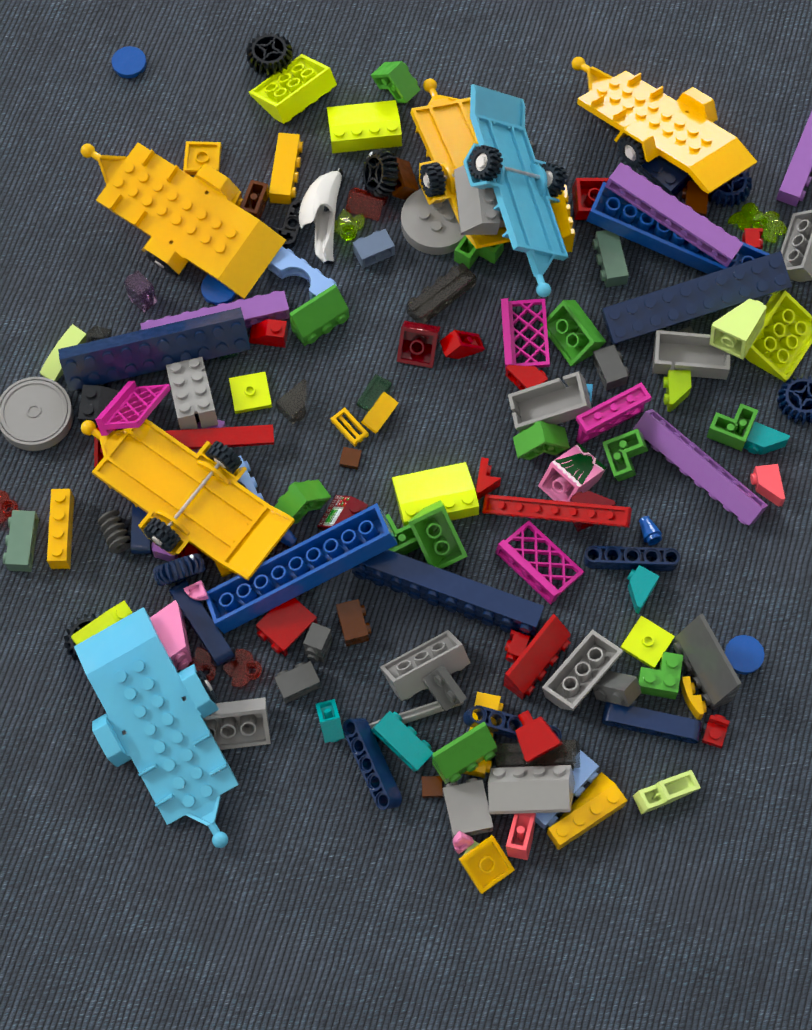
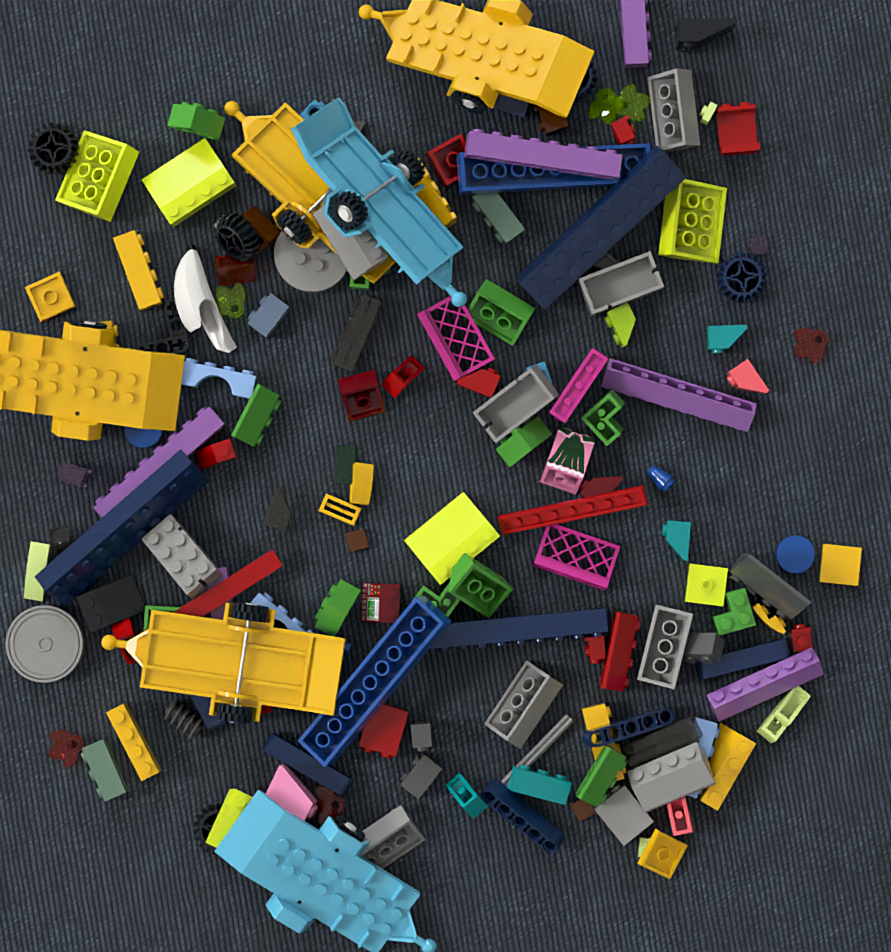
camera: 25 degrees left, 20 degrees up
(130, 405) = (126, 606): dark pink fence -> none
(179, 569) = (263, 733): dark blue gear -> none
(196, 591) = (291, 743): bright pink tile -> none
(240, 668) = (363, 788): clear red plate -> none
(250, 392) = (230, 521): neon yellow plate -> none
(255, 198) = (129, 324): reddish brown brick -> none
(353, 622) = (441, 697): reddish brown brick -> none
(444, 688) = (552, 723): dark grey bracket -> none
(462, 841) = (633, 845): bright pink tile -> none
(486, 482) = (490, 507): red slope -> none
(535, 737) = (656, 733): red torso -> none
(610, 367) = (550, 331): dark grey brick -> none
(639, 553) = (666, 513): dark blue beam -> none
(661, 753) = (765, 684): none -> medium lavender brick
(733, 431) = (696, 343): bright green brick -> none
(738, 328) = (658, 247): yellowish green slope -> none
(783, 684) = (840, 564): none -> yellow tile

